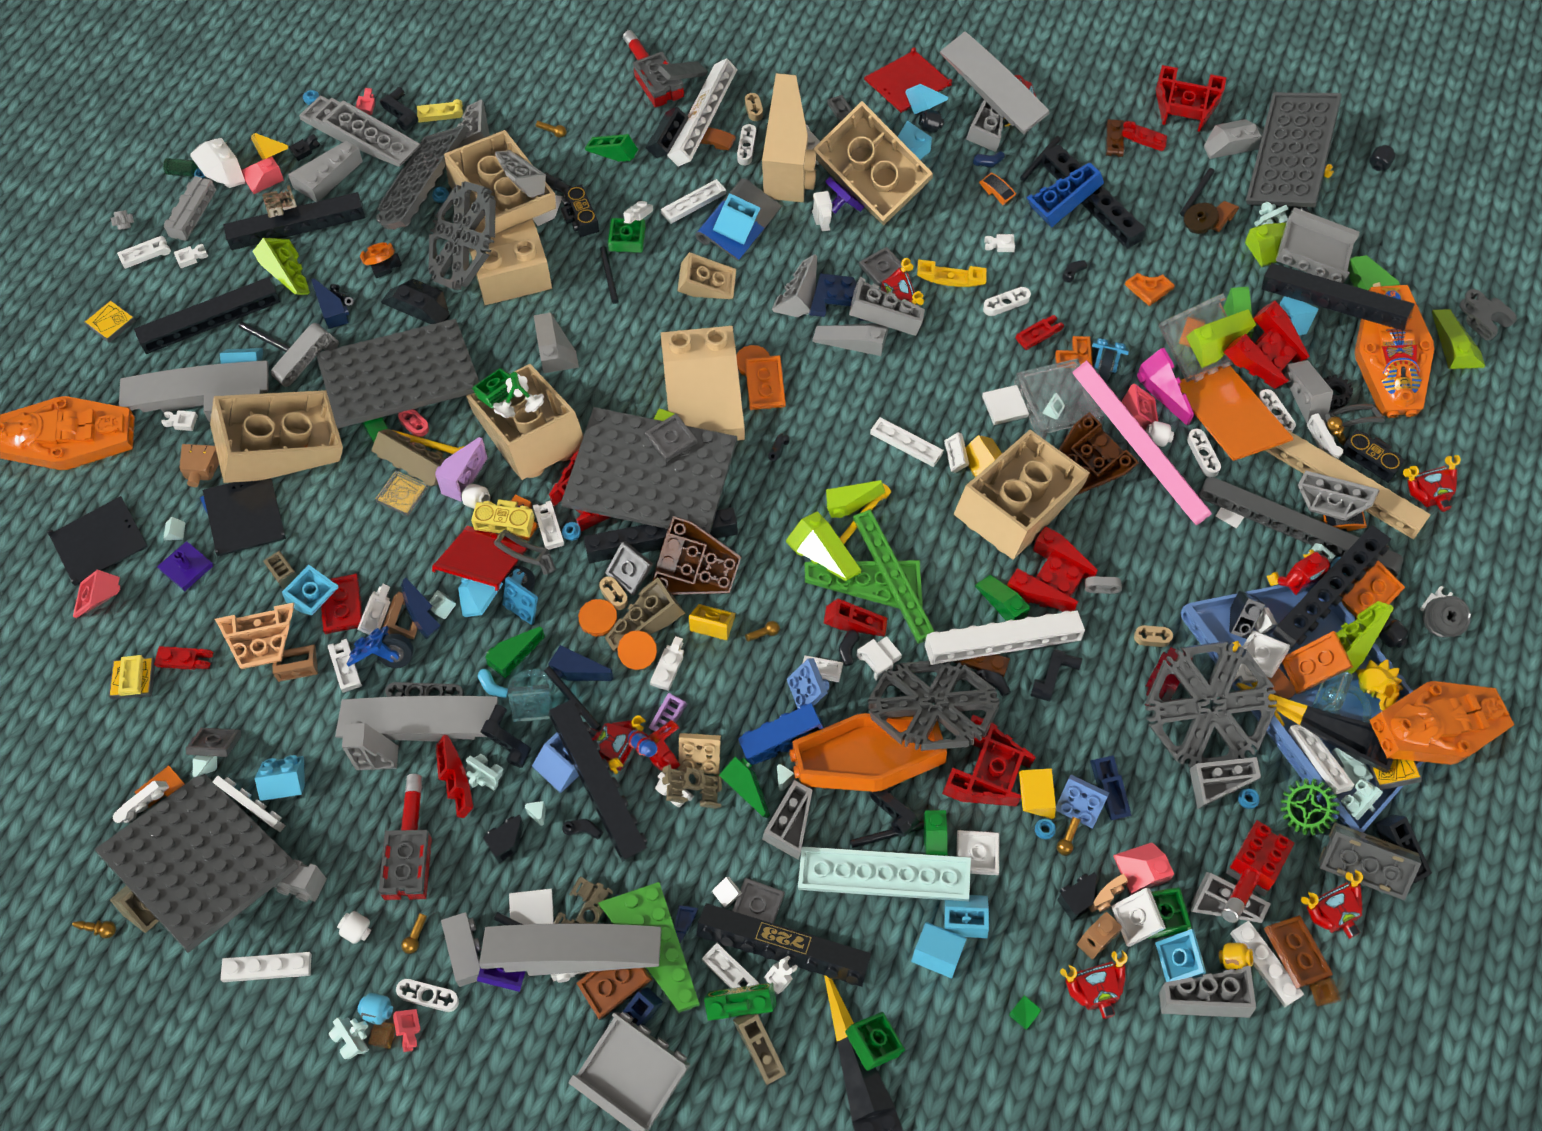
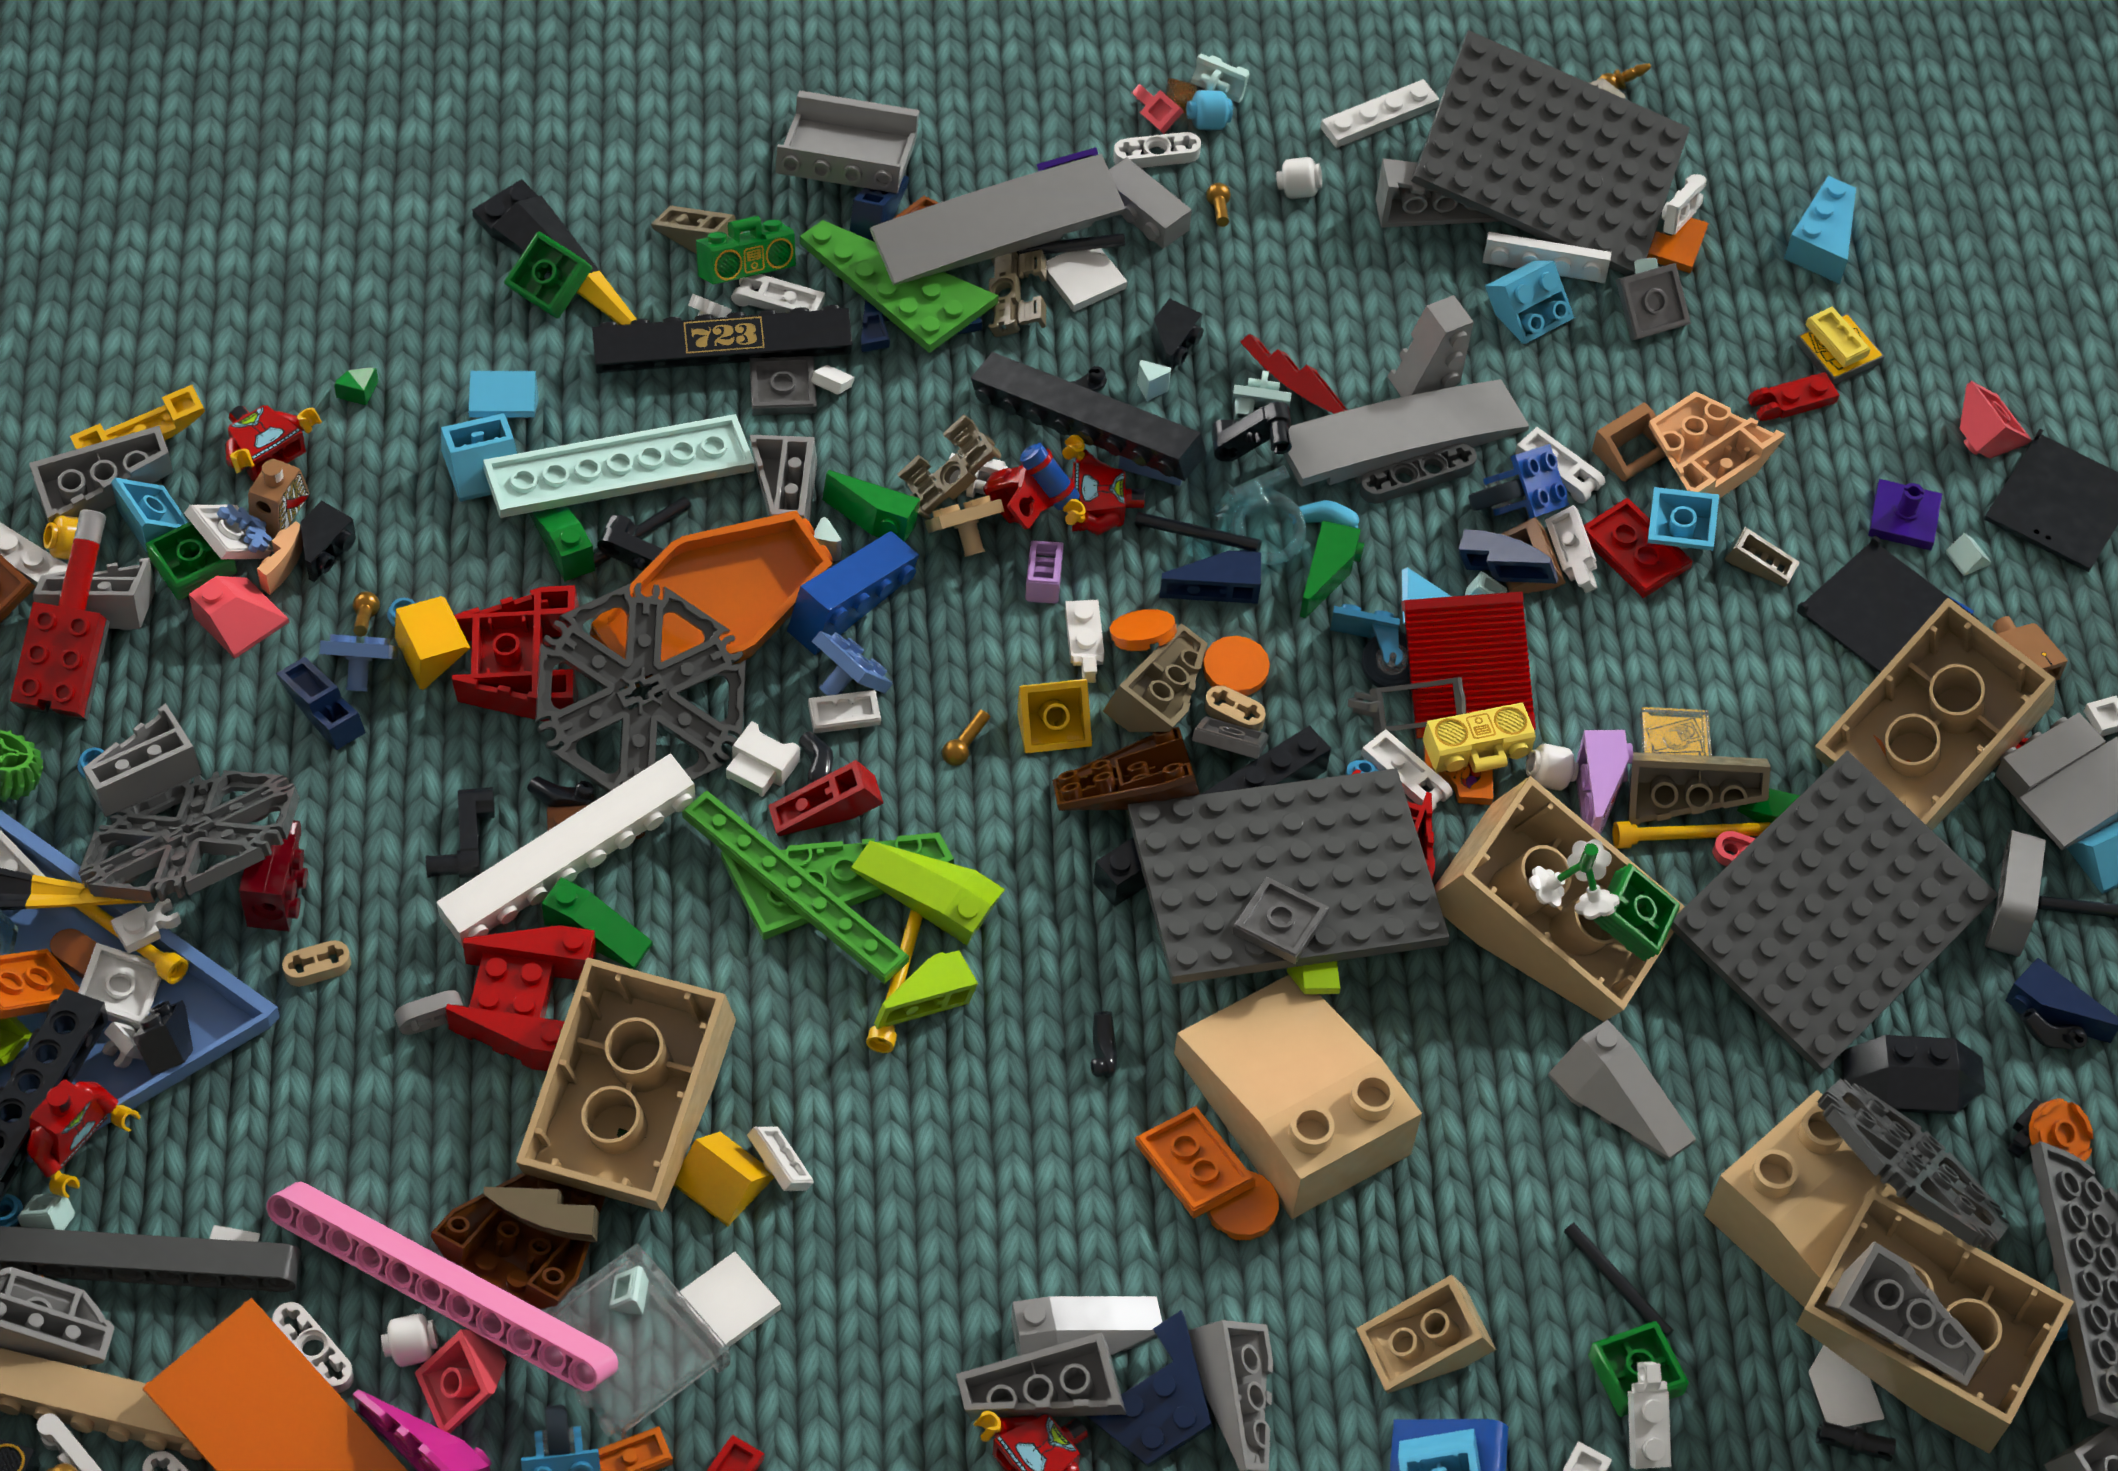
camera: 150 degrees right, 5 degrees down
(72, 754) = (1824, 231): none -> medium azure wedge
(406, 851) = (1293, 270): dark grey piece -> none
(583, 217) = (1765, 1390): black piece -> none
(906, 442) = (880, 1147): white plate -> none
(981, 848) = (495, 553): white tile -> none
(1083, 452) = (547, 1212): none -> dark tan slope
(1120, 909) = (256, 532): none -> medium blue animal
(1176, 1031) = (176, 414): none -> yellow slope

